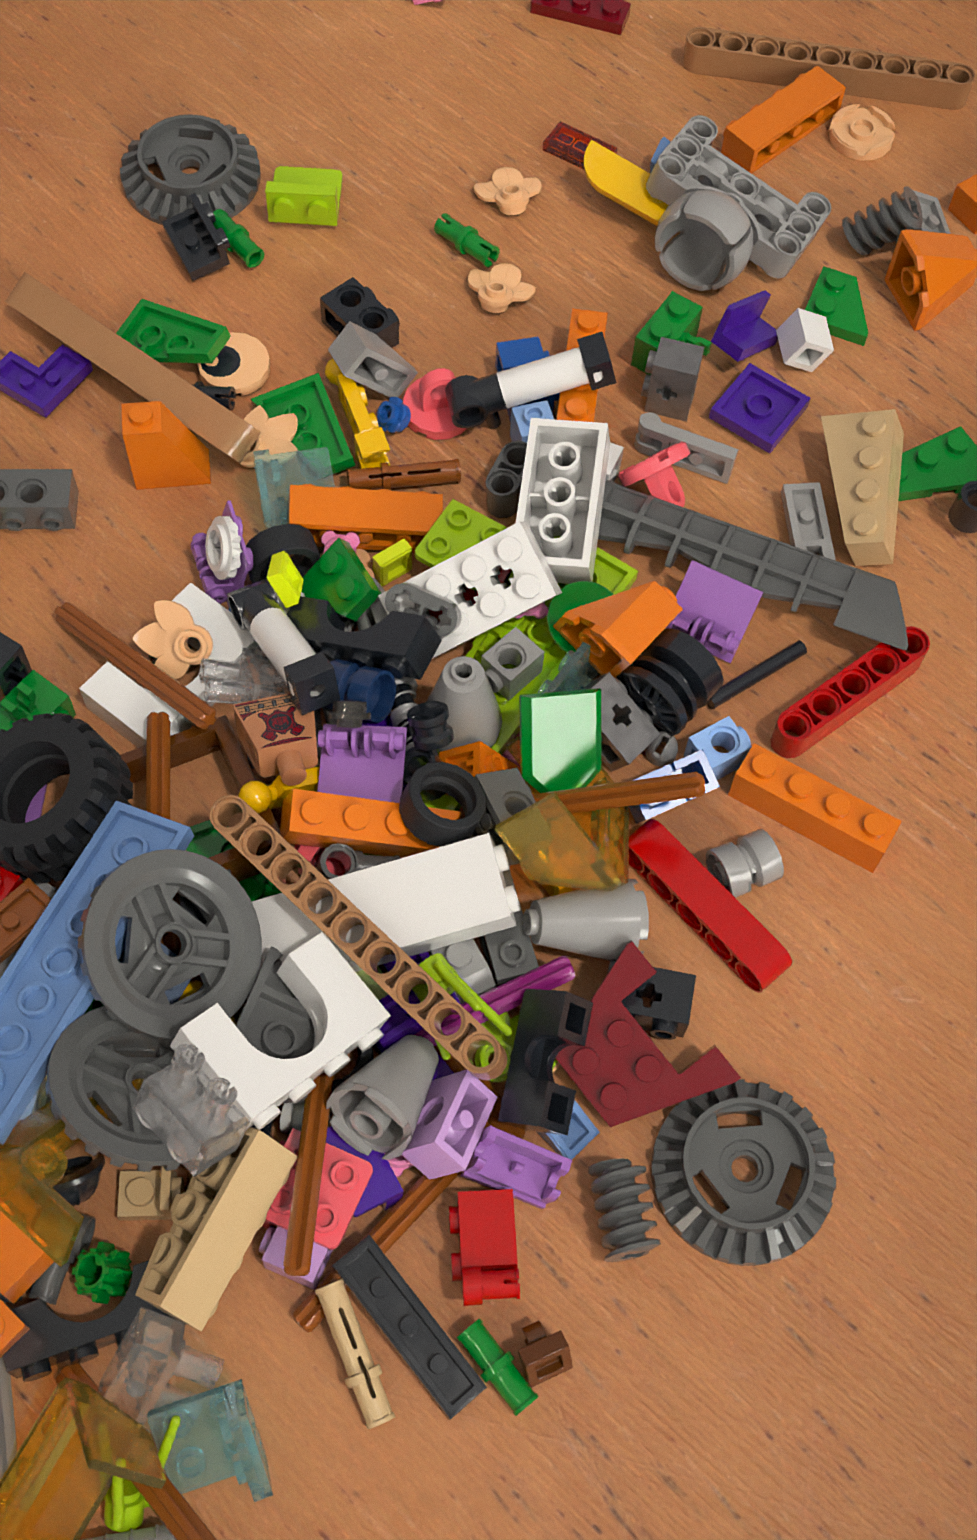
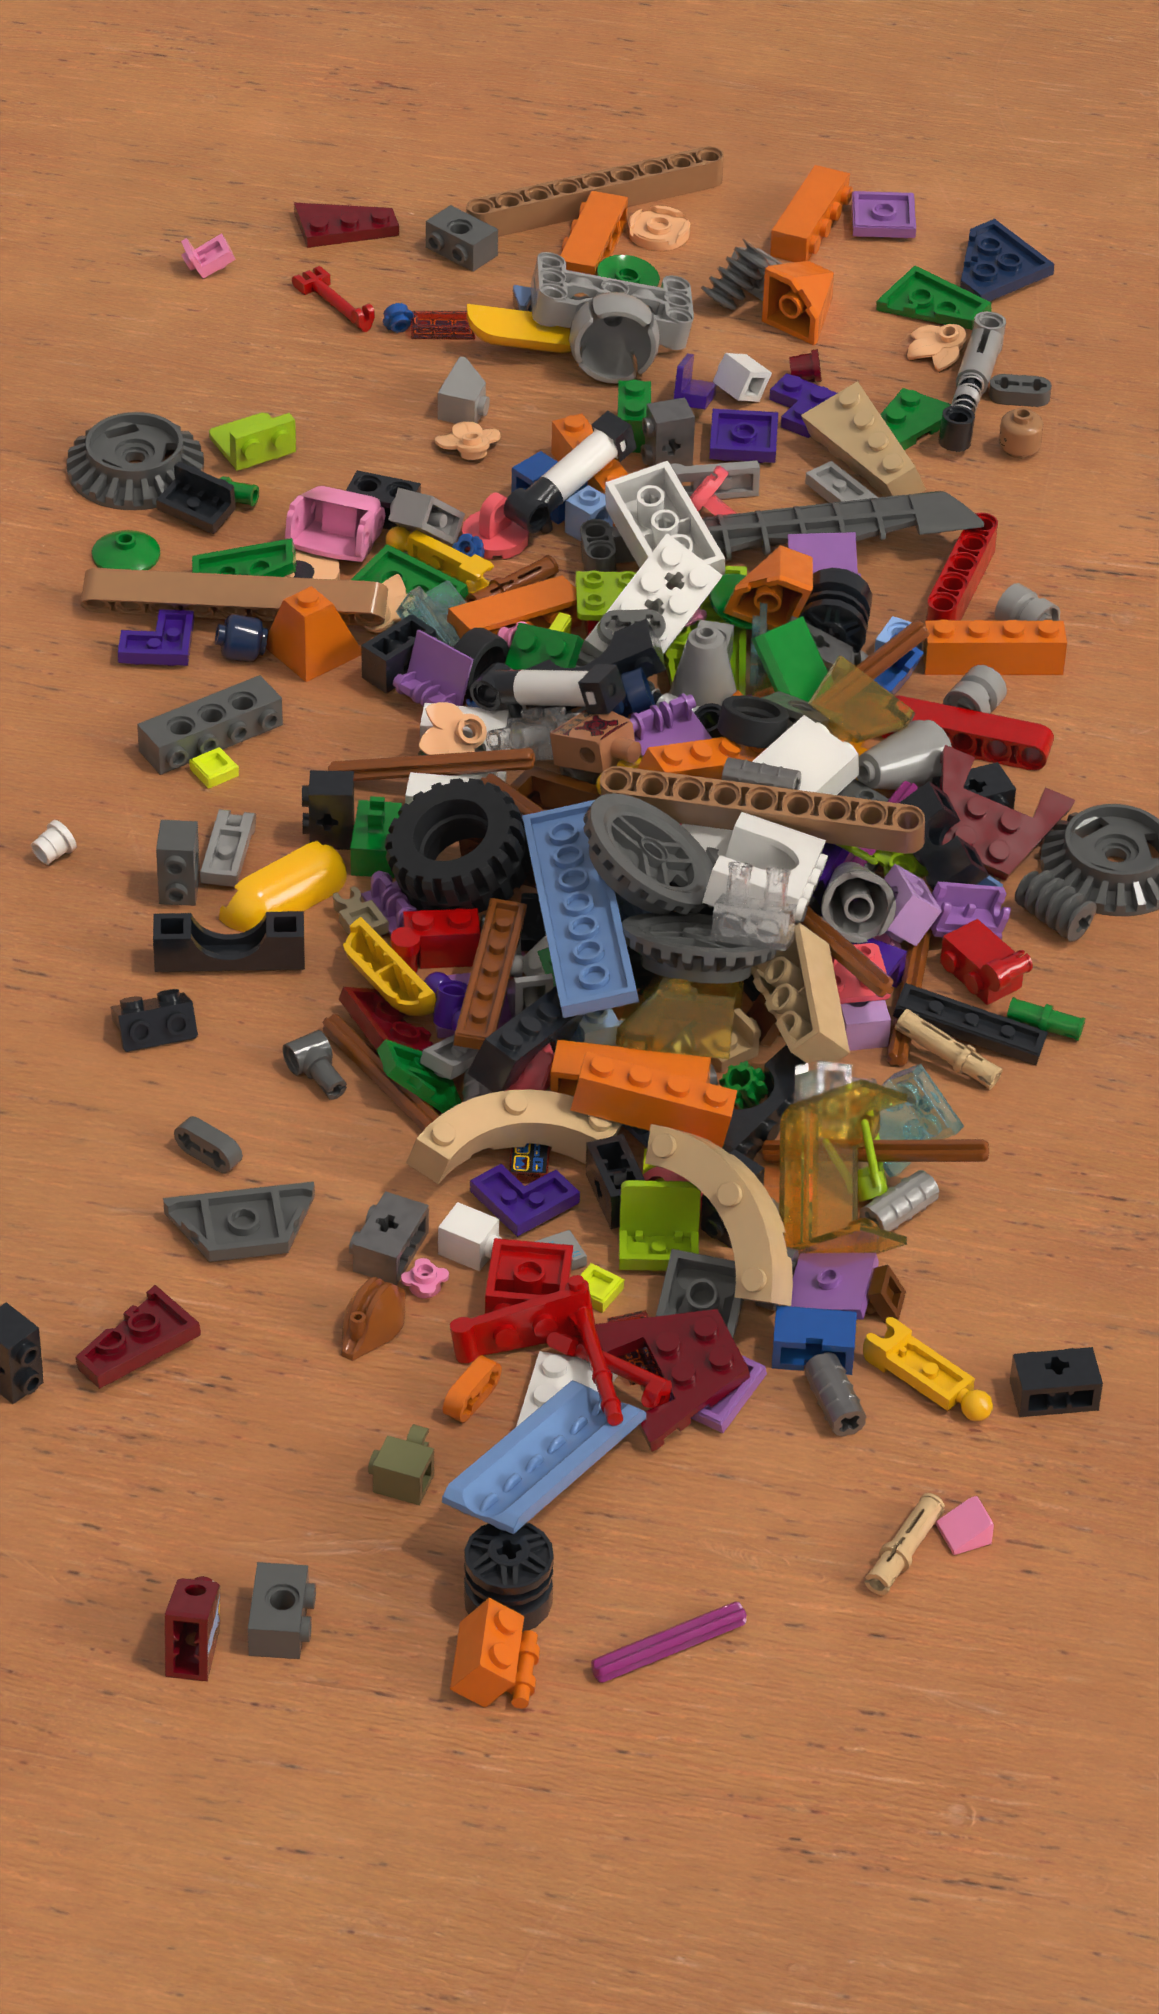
camera: 30 degrees left, 20 degrees down
(102, 413) = (241, 638): none -> dark blue head
(104, 264) = (126, 551): none -> green dish
(207, 500) = (391, 652): none -> black brick
(223, 547) = (427, 654): white gear -> none
(285, 579) = (501, 654): neon yellow tile -> none
(286, 325) = (335, 523): none -> bright pink piece
(349, 713) = (641, 698): clear smoke plate -> none
(380, 896) = (761, 774): none -> flat silver axle
(430, 725) = (701, 686): black wheel -> none
(466, 240) = (414, 418): green pin -> none
(508, 190) = (410, 372): light nougat plate -> none
(509, 105) = (319, 282): none -> red hinge
(527, 234) = (463, 394): none -> light grey slope
(541, 122) = (397, 317): none -> blue plate
(543, 1355) = (1071, 995): reddish brown tile -> none
(664, 63) = (461, 238): none -> dark grey brick
(758, 673) = (887, 593): black bar -> none
(787, 170) = (628, 269): none -> green dish
(840, 301) = (741, 340): green wing -> none
(855, 390) = (800, 398): none -> dark purple plate
(878, 777) = (1024, 605): none -> light grey wheel
(881, 356) = (806, 366): none -> dark red piece

